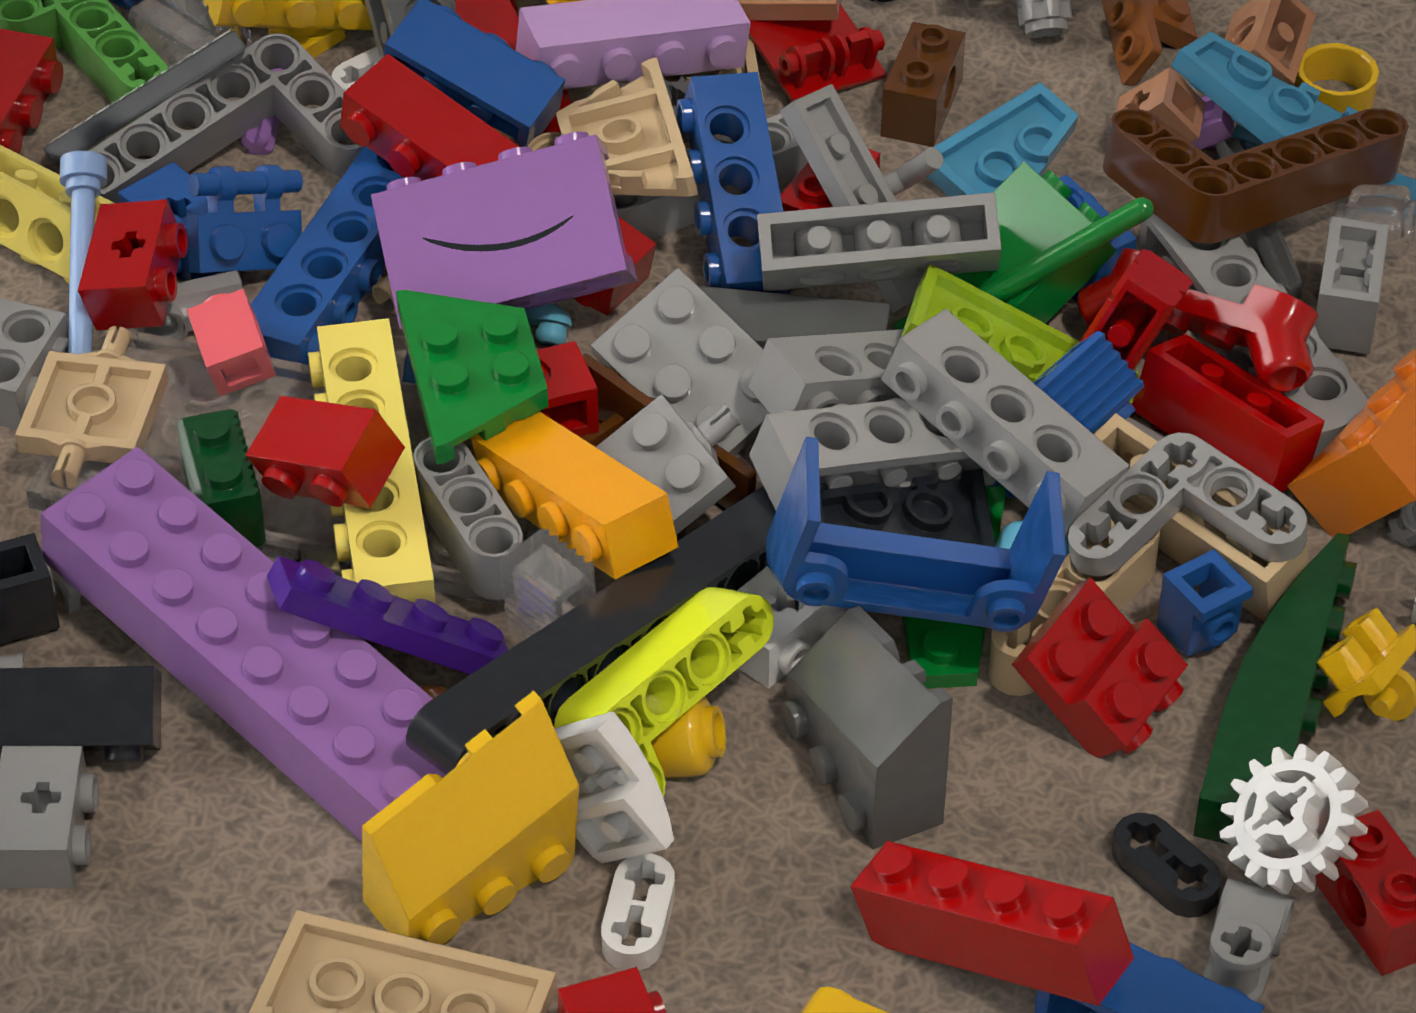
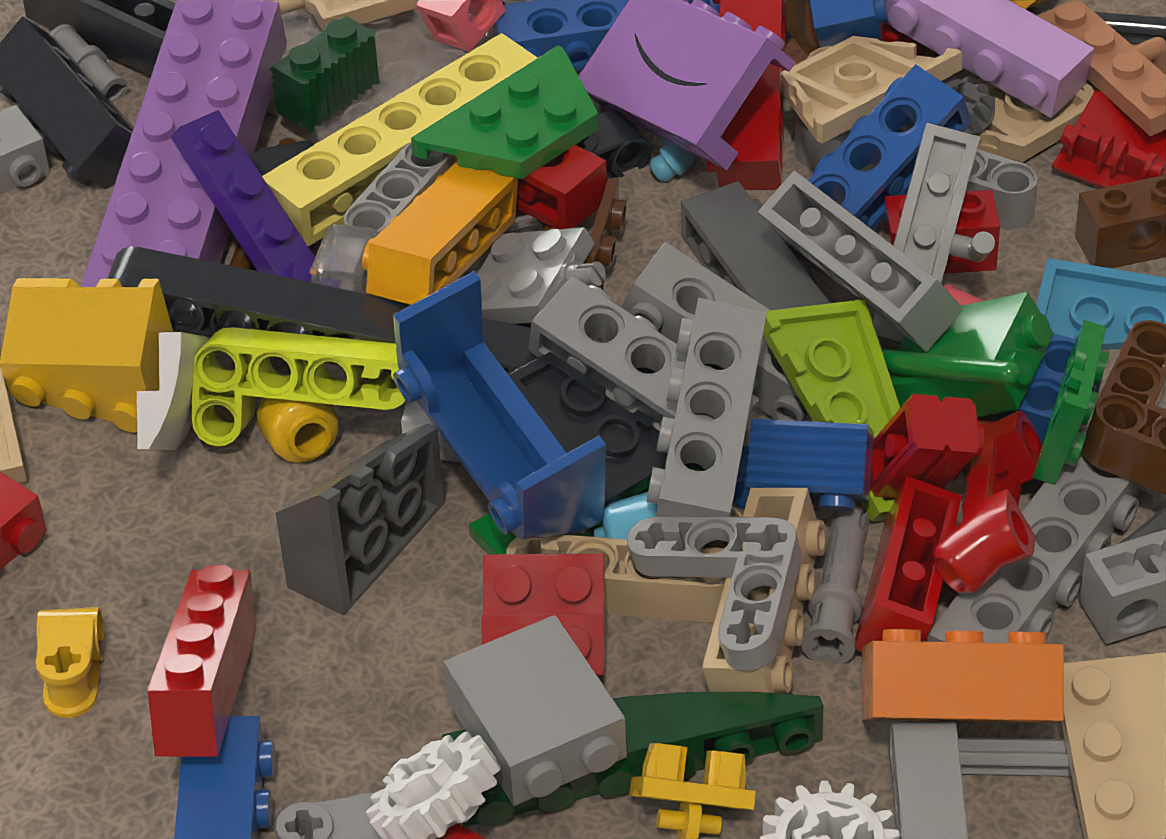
camera: 60 degrees right, 0 degrees up
(325, 452) = (357, 91): red piece -> none
(624, 908) = (123, 486): white beam -> none
(690, 354) = (675, 209): light grey plate -> none
(1171, 860) = (378, 751): black beam -> none
(1186, 203) = (1073, 403): none -> green wing
(1202, 618) = (664, 664): blue brick -> none
(1240, 700) = (536, 709): none -> light grey brick

